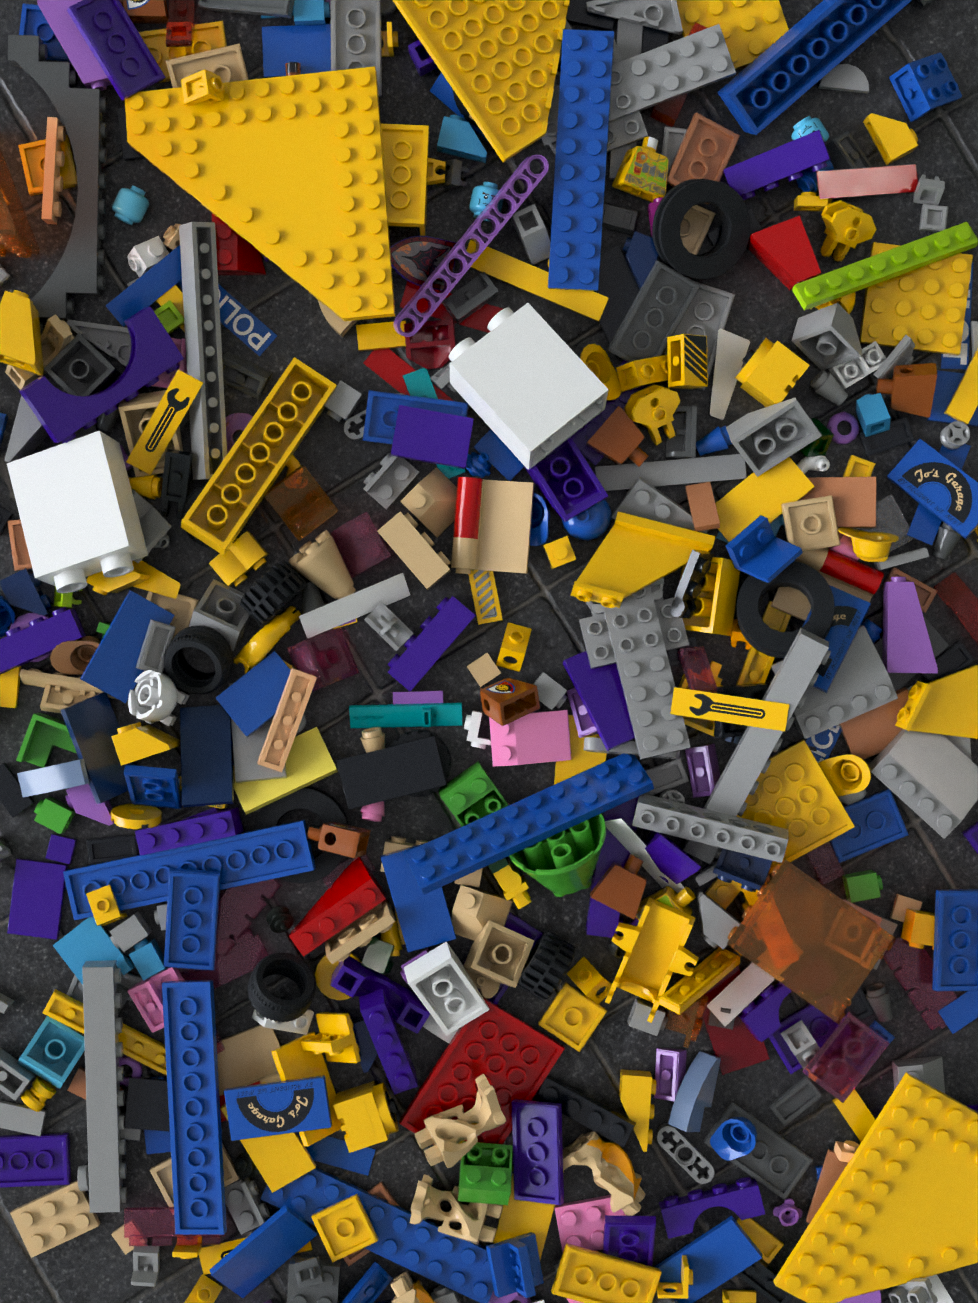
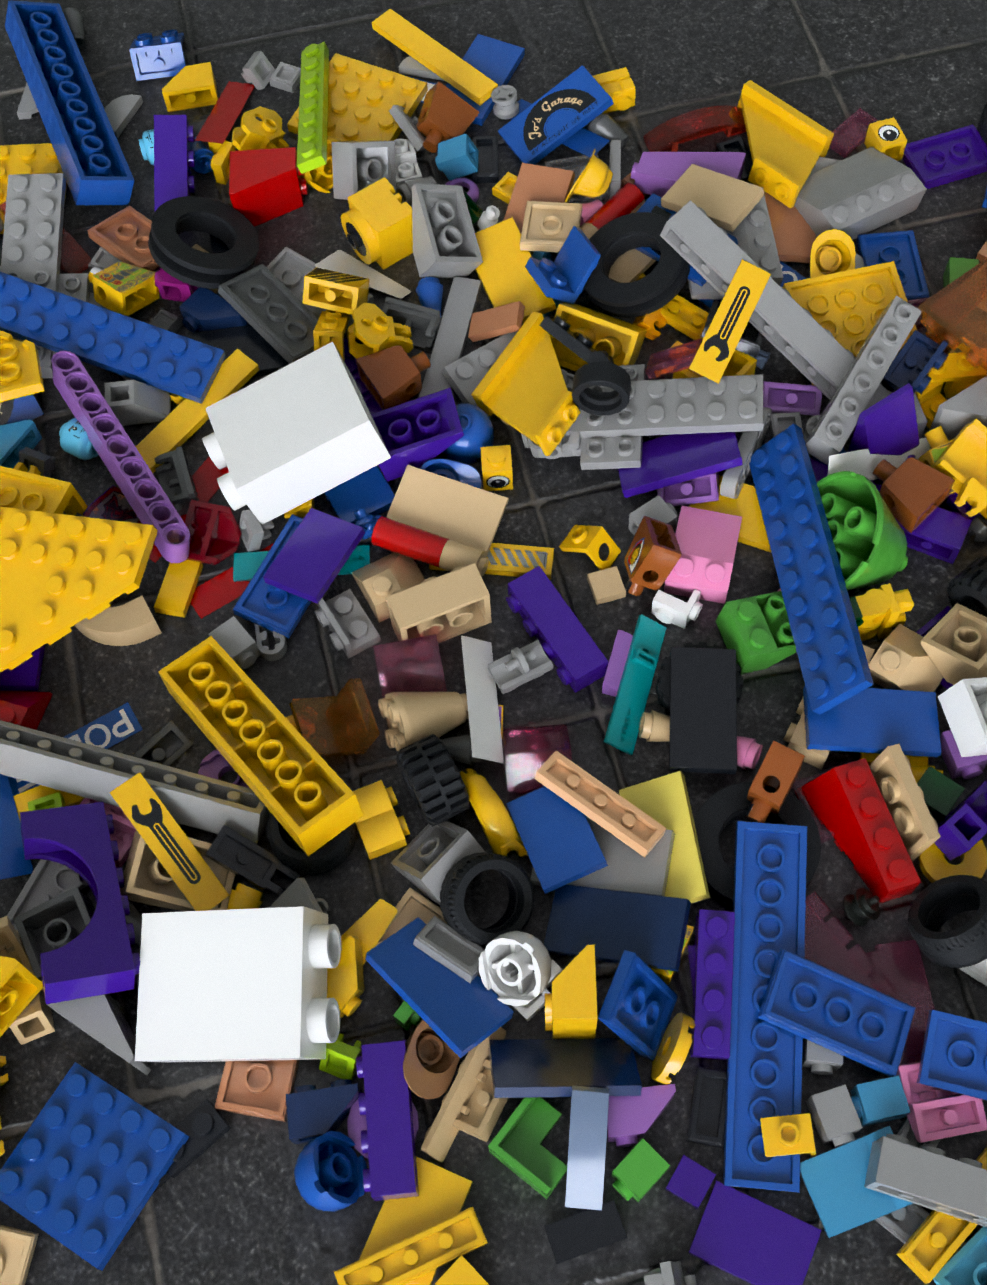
camera: 65 degrees left, 25 degrees down
(632, 622) = (605, 375): none -> black tyre
(867, 658) = (719, 195): none -> tan tile

